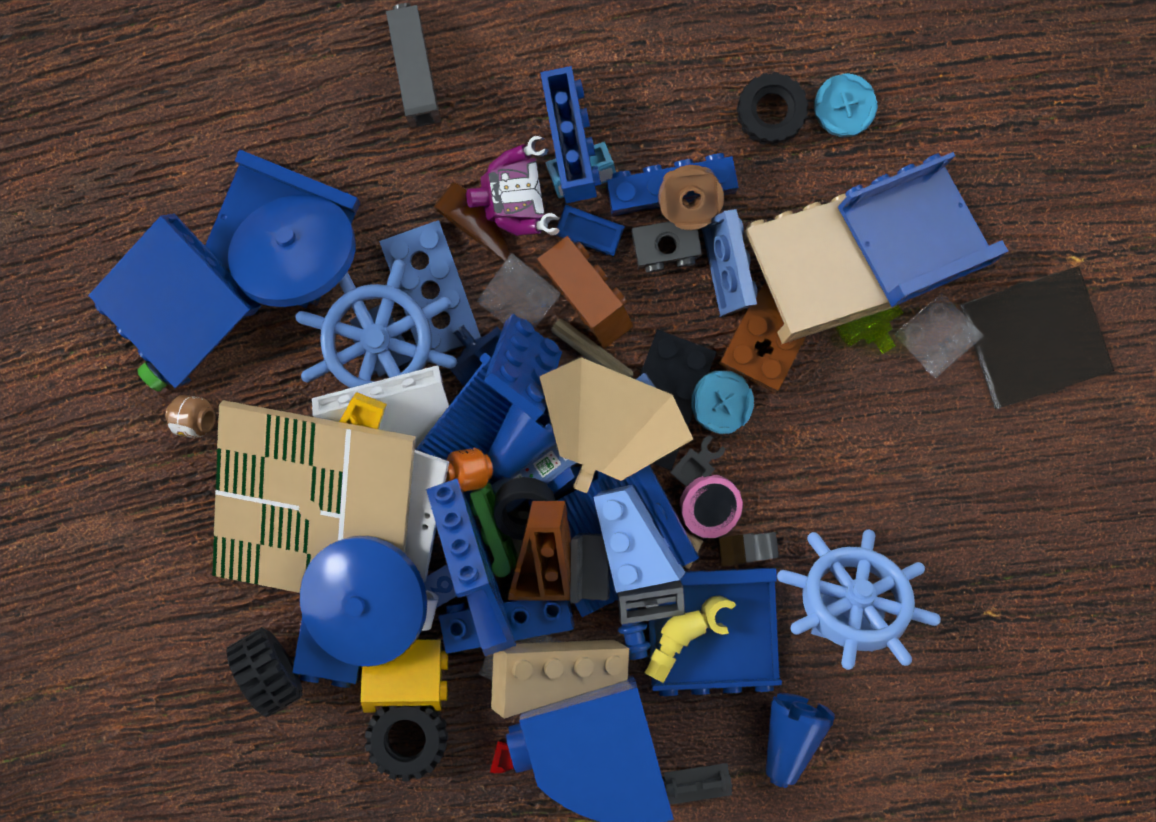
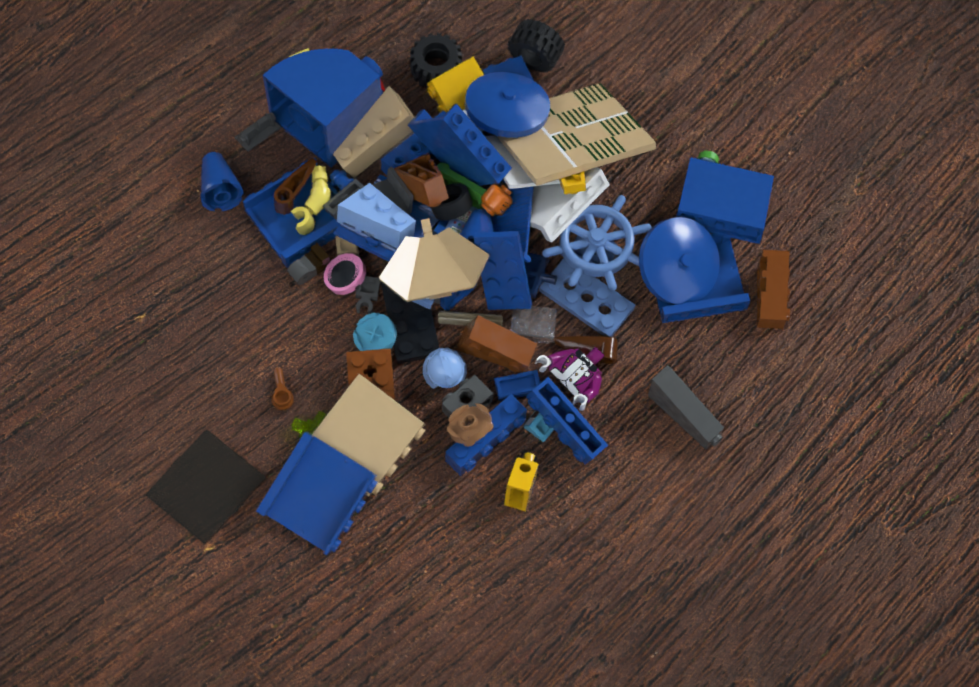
camera: 145 degrees right, 20 degrees down
(190, 416) = (671, 151): medium nougat head -> none
(201, 147) = (773, 289): none -> dark orange wedge
(665, 303) = (444, 368): none -> light blue helmet
(674, 89) = (521, 482): none -> yellow torso
(702, 665) = (291, 187): none -> reddish brown piece
(729, 263) = (420, 407): medium blue plate -> none
(772, 84) = (449, 502): black tyre -> none
(845, 105) = (411, 551): medium azure tile -> none
(853, 612) = (226, 261): light blue piece -> none
(883, 391) = (282, 398): none -> dark orange plate
(938, 335) = (267, 446): clear hinge -> none

